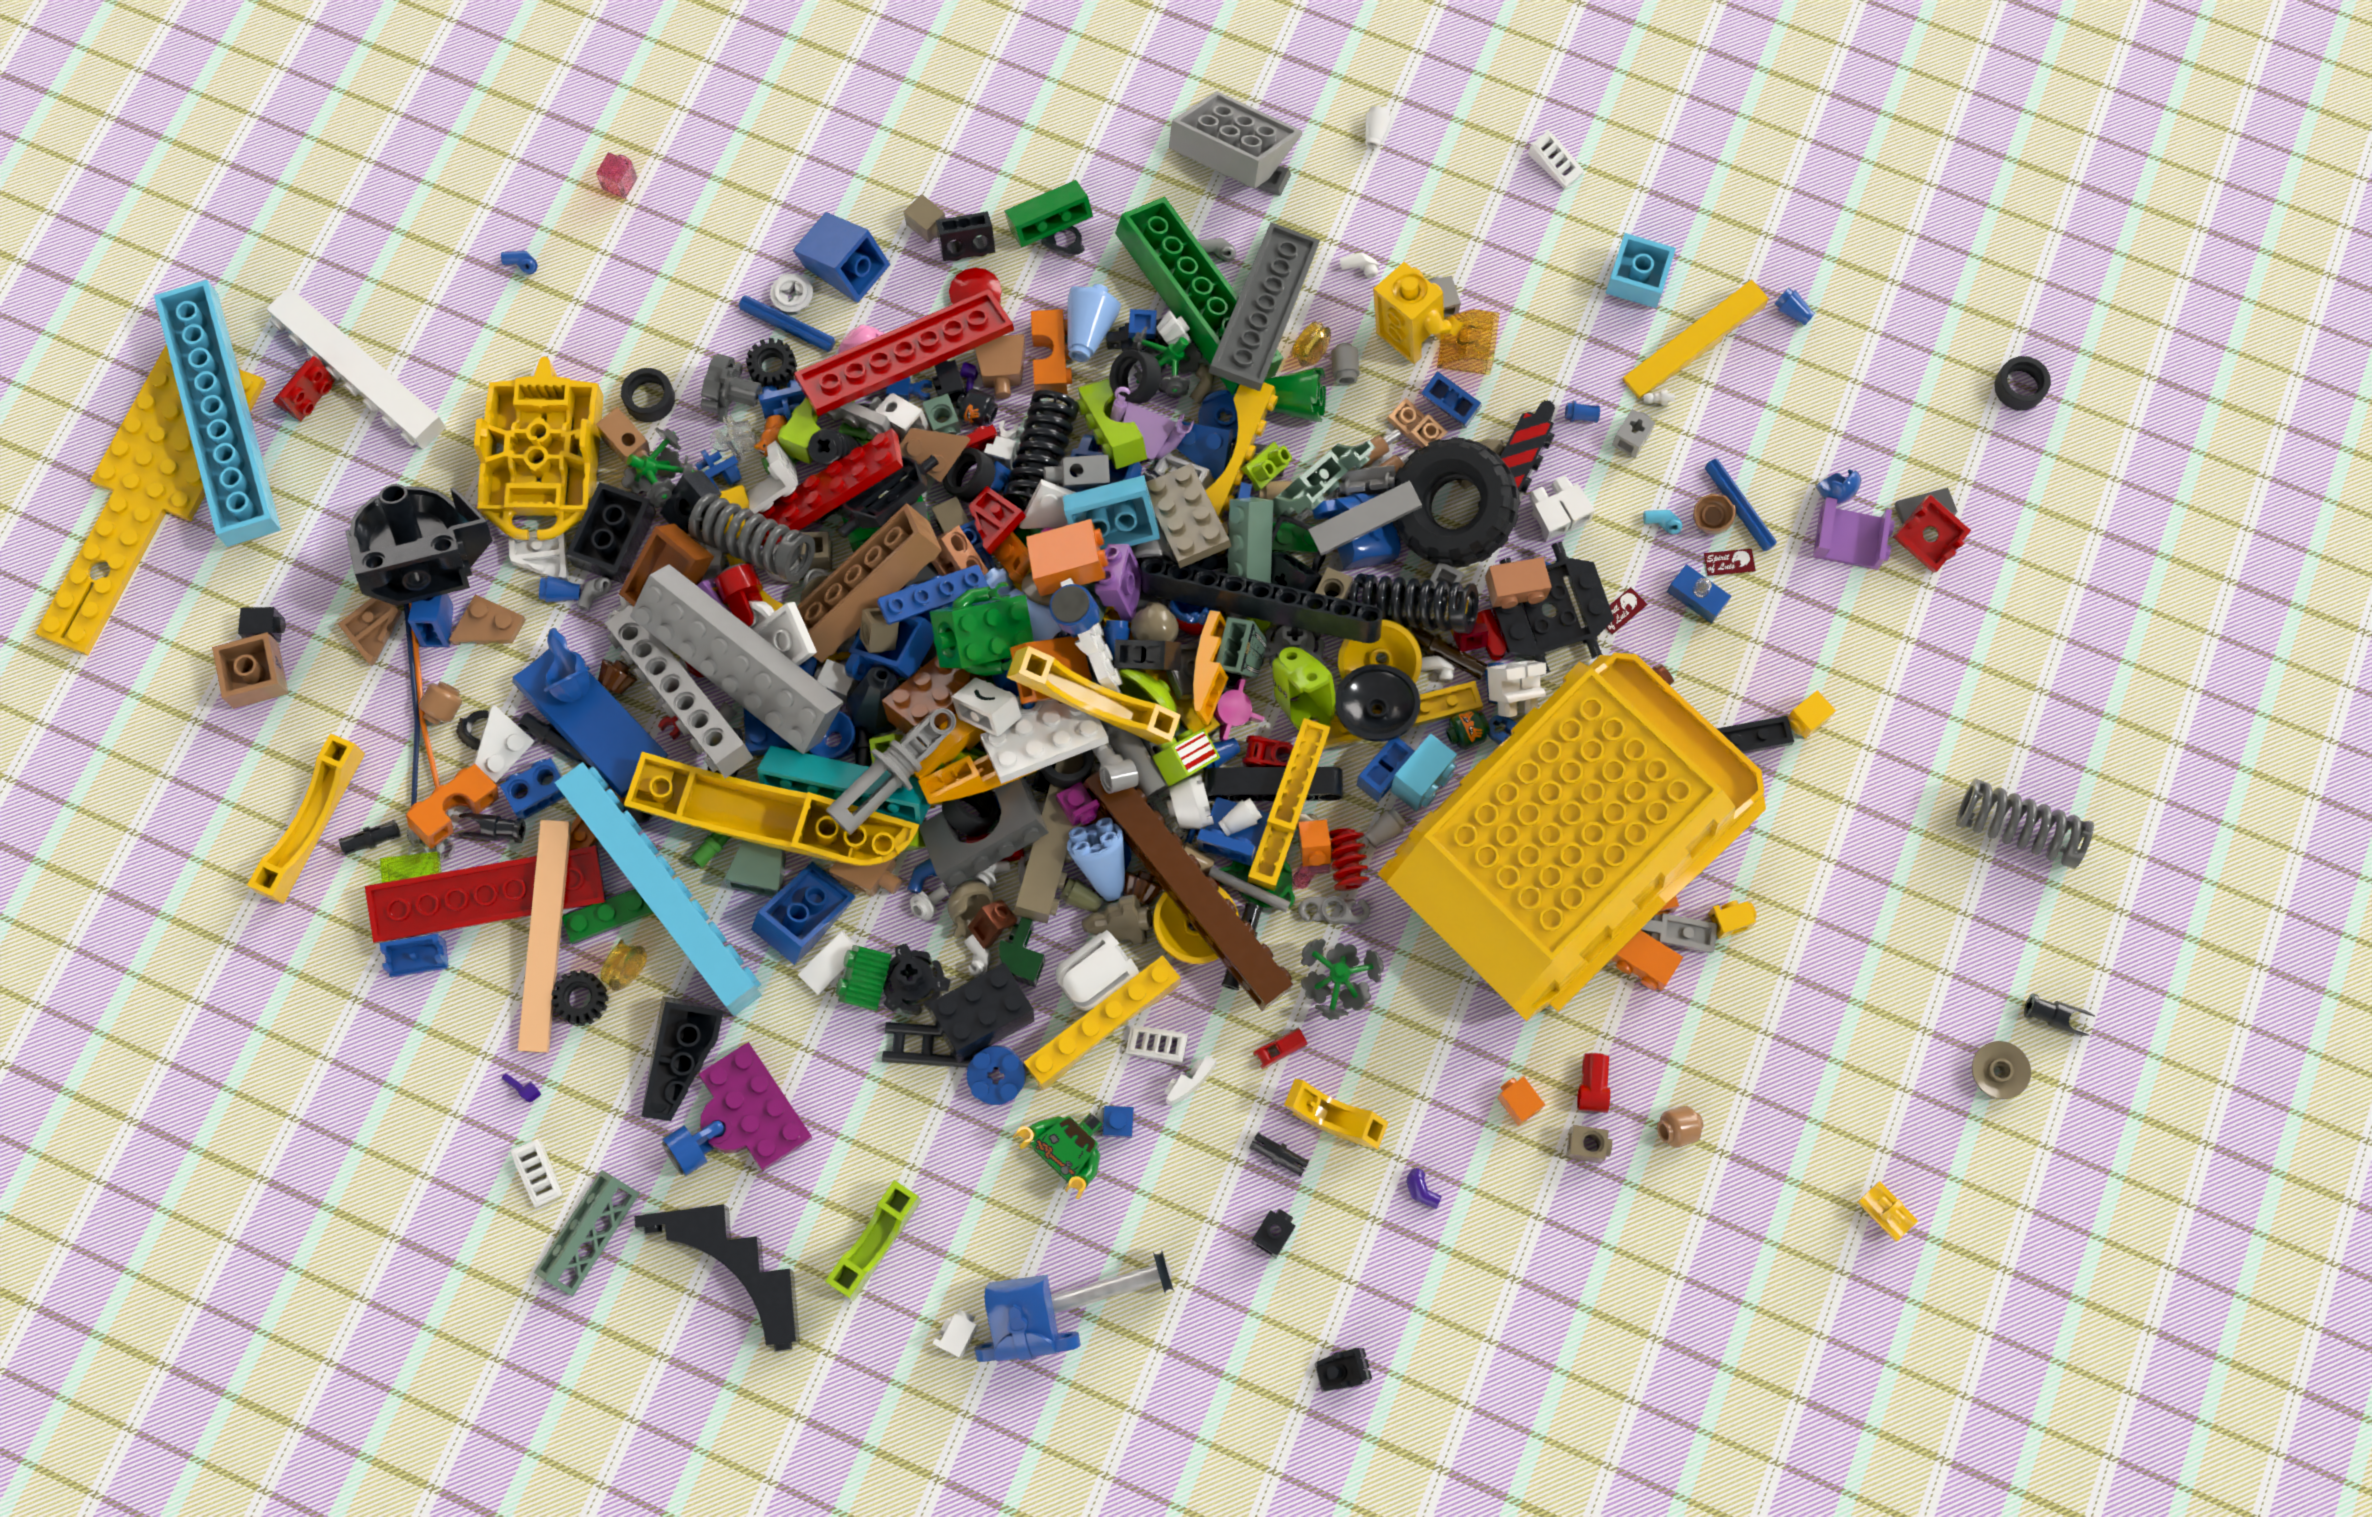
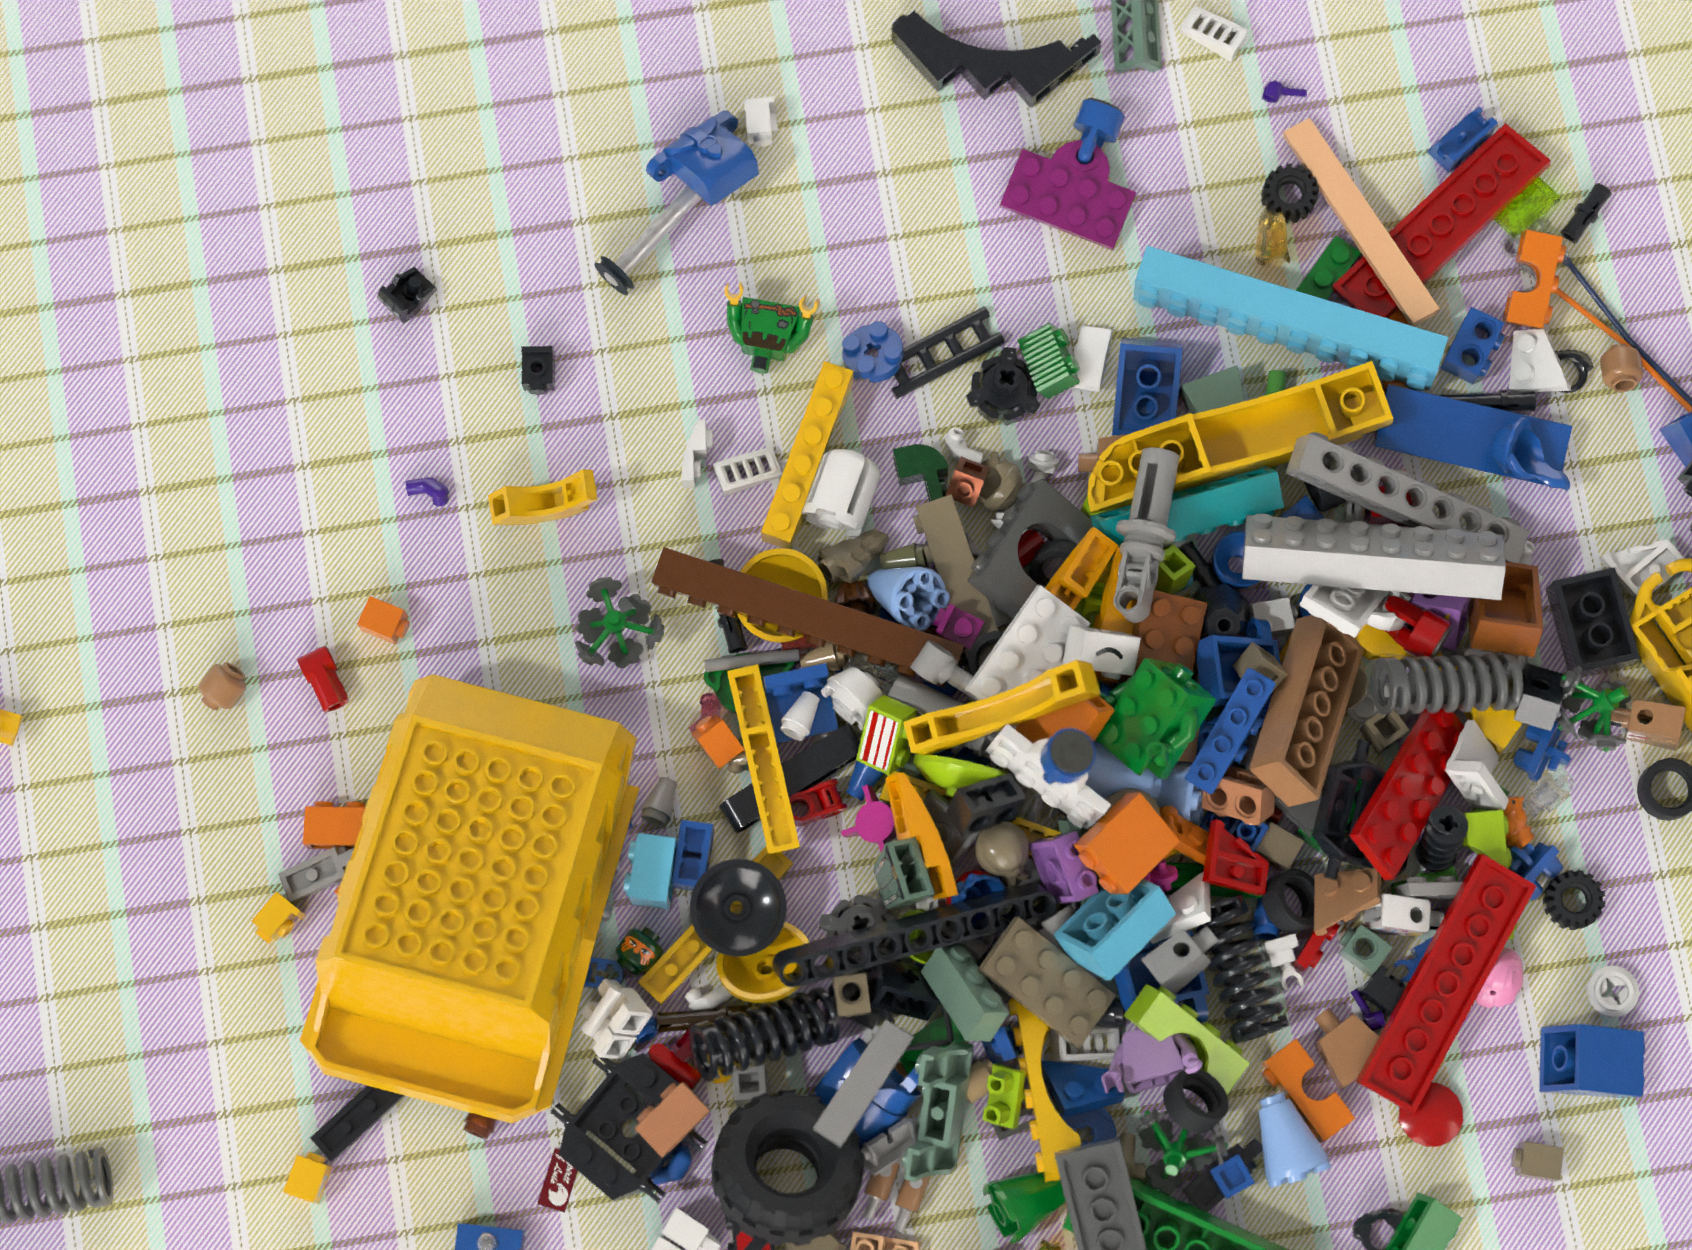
camera: 150 degrees right, 5 degrees up
(285, 861) = (1661, 234): yellow arch -> none
(487, 623) = (1641, 471): medium nougat wing -> none
(495, 827) = (1484, 289): black piece -> none
(556, 590) = (1600, 541): blue cone -> none
(592, 590) = (1570, 560): light grey arm -> none
(616, 676) = (1482, 490): reddish brown piece -> none
(680, 1046) = (1168, 206): black wedge -> none
(724, 385) = (1597, 837): dark grey piece -> none
(786, 323) = (1593, 956): blue axle -> none
(883, 1229) = (882, 148): lime arch -> none
(919, 875) = (1066, 484): blue arm -> none
(965, 231) = (1481, 1163): black brick -> none
(977, 407) = (1337, 982): black head -> none
(981, 1012) = (922, 393): black brick -> none
(1115, 630) = (1034, 818): blue cone -> none
(1118, 1121) = (738, 383): blue plate -> none
(1172, 328) = (1194, 1187): white piece -> none
(1279, 1154) = (575, 442): black pin -> none
(1284, 1045) = (630, 539): red bar -> none
(1306, 678) = (820, 878): lime piece -> none
(1321, 914) = (646, 694): light grey piece -> none
(1347, 859) = (675, 747): red piece -> none
(1576, 1149) = (312, 622): dark tan brick -> none

